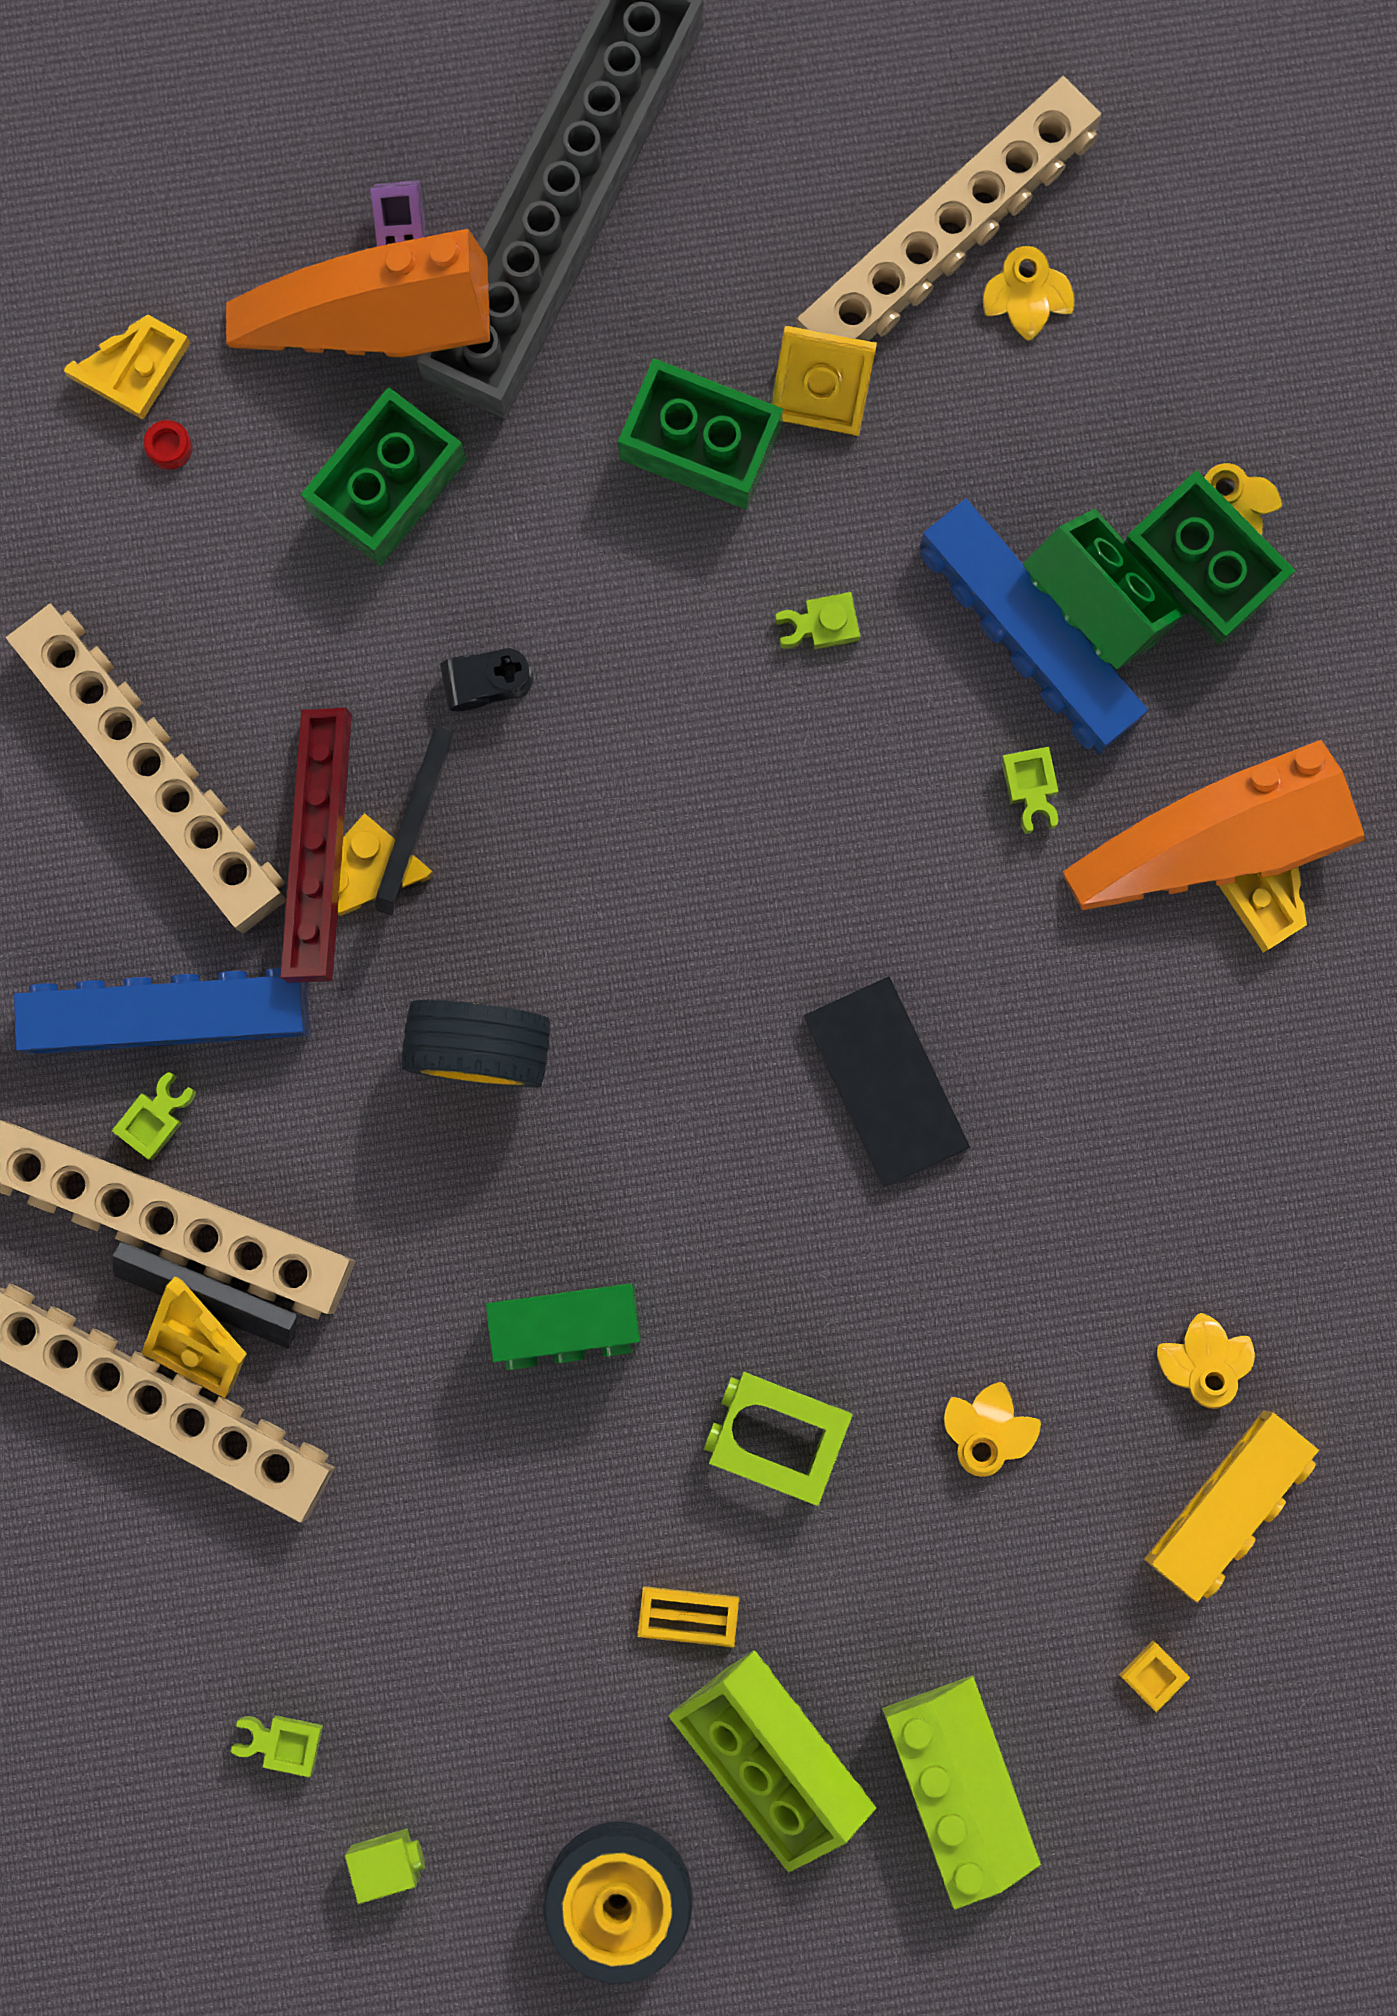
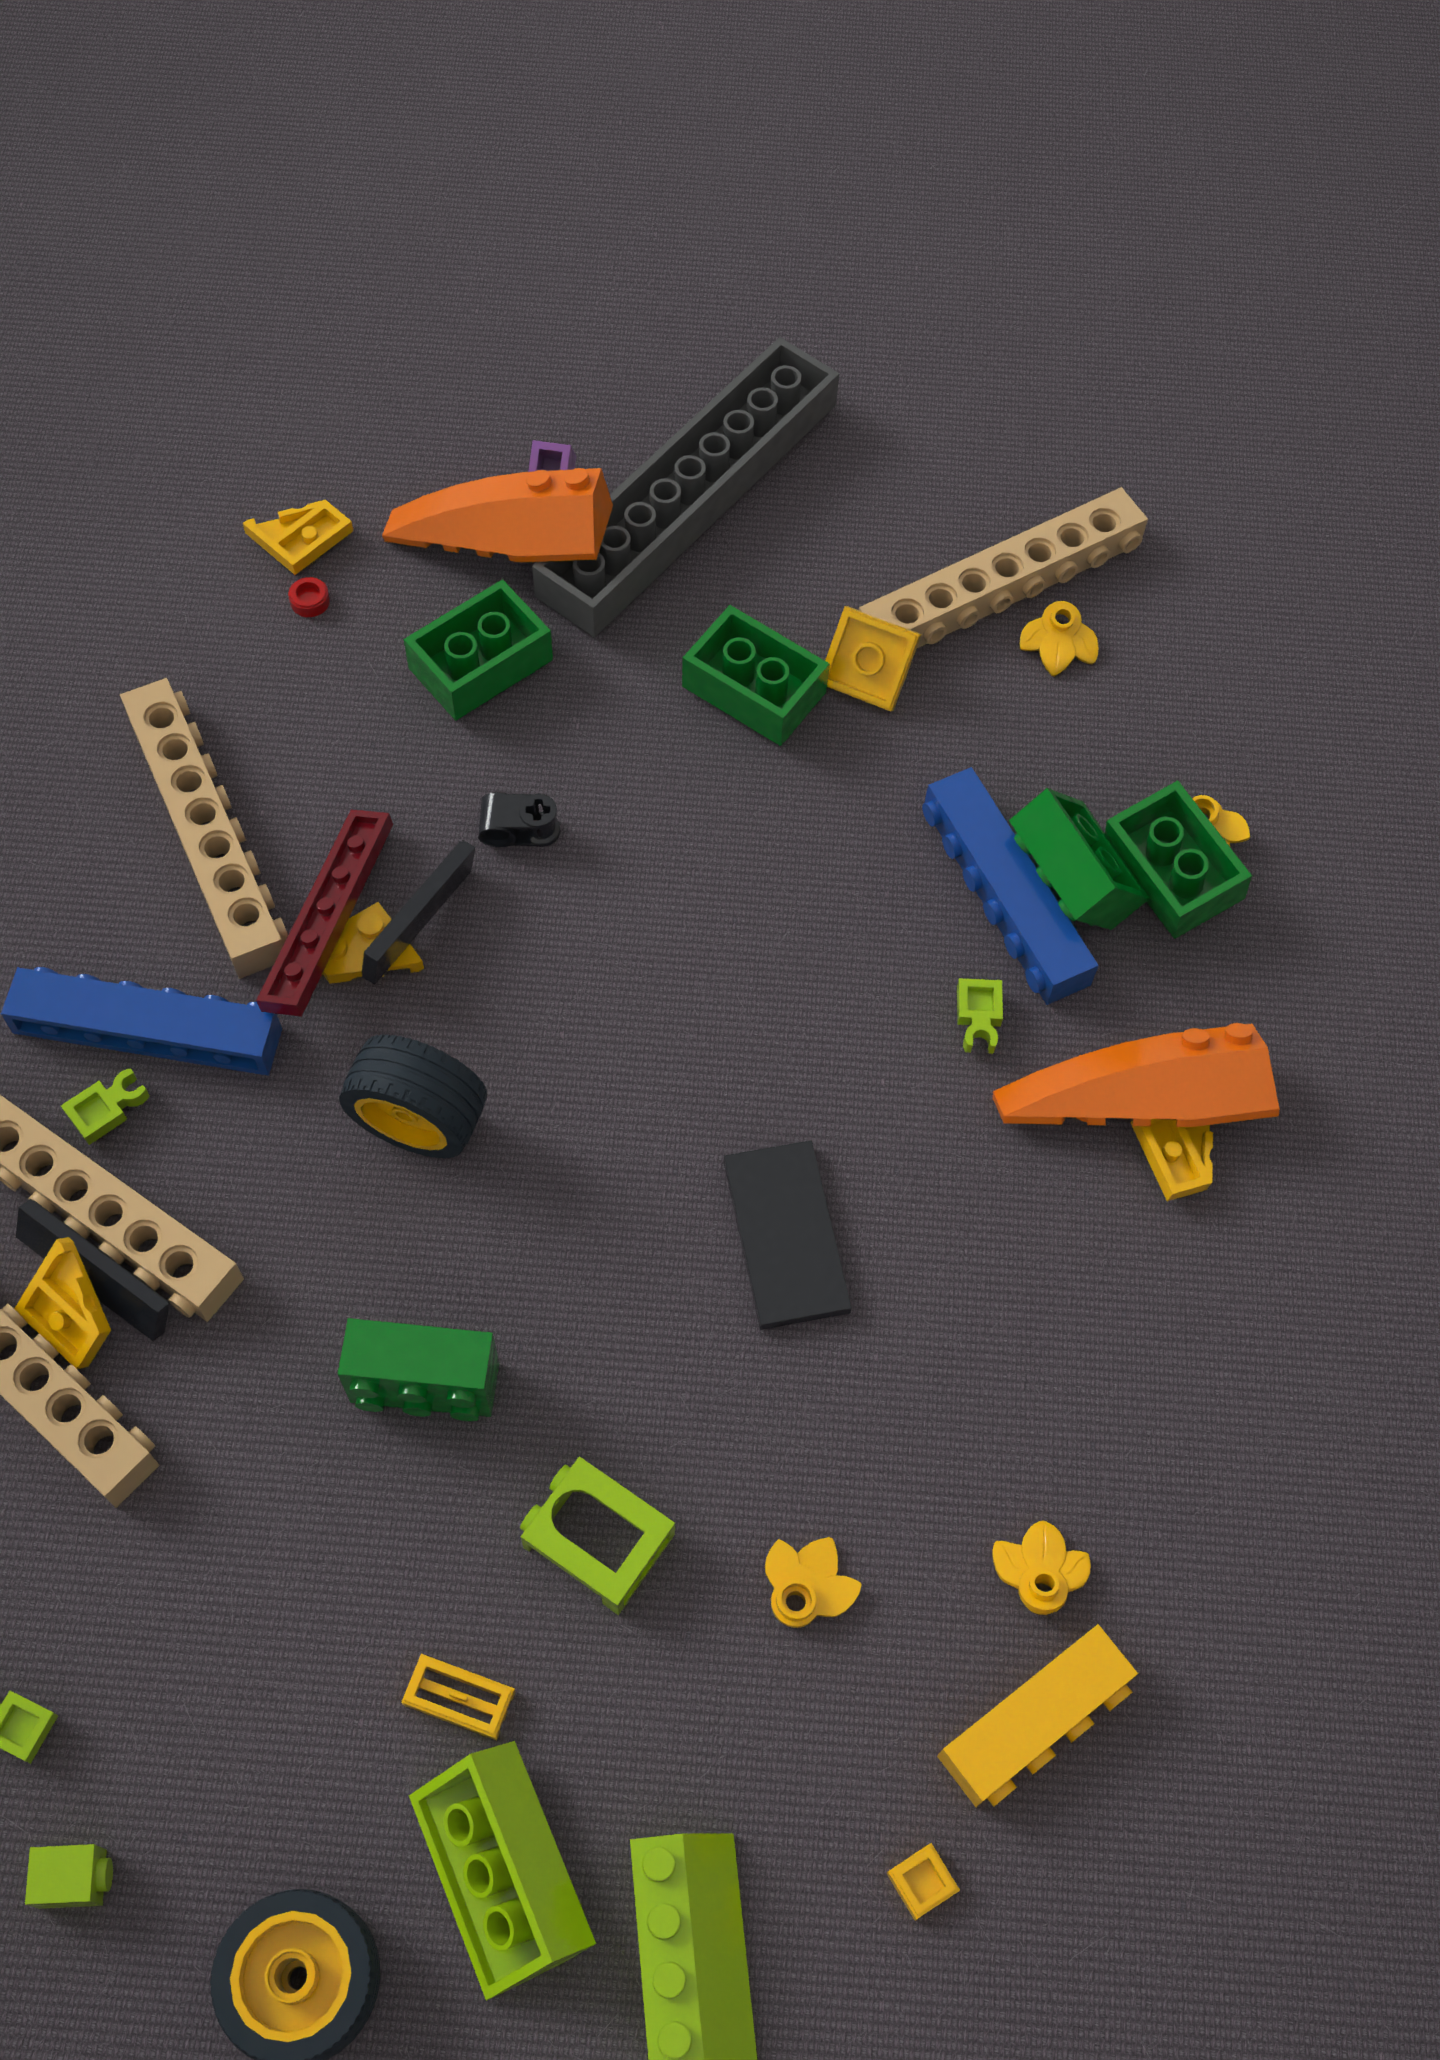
camera: 10 degrees right, 20 degrees down
(828, 622) = (827, 844): lime plate -> none

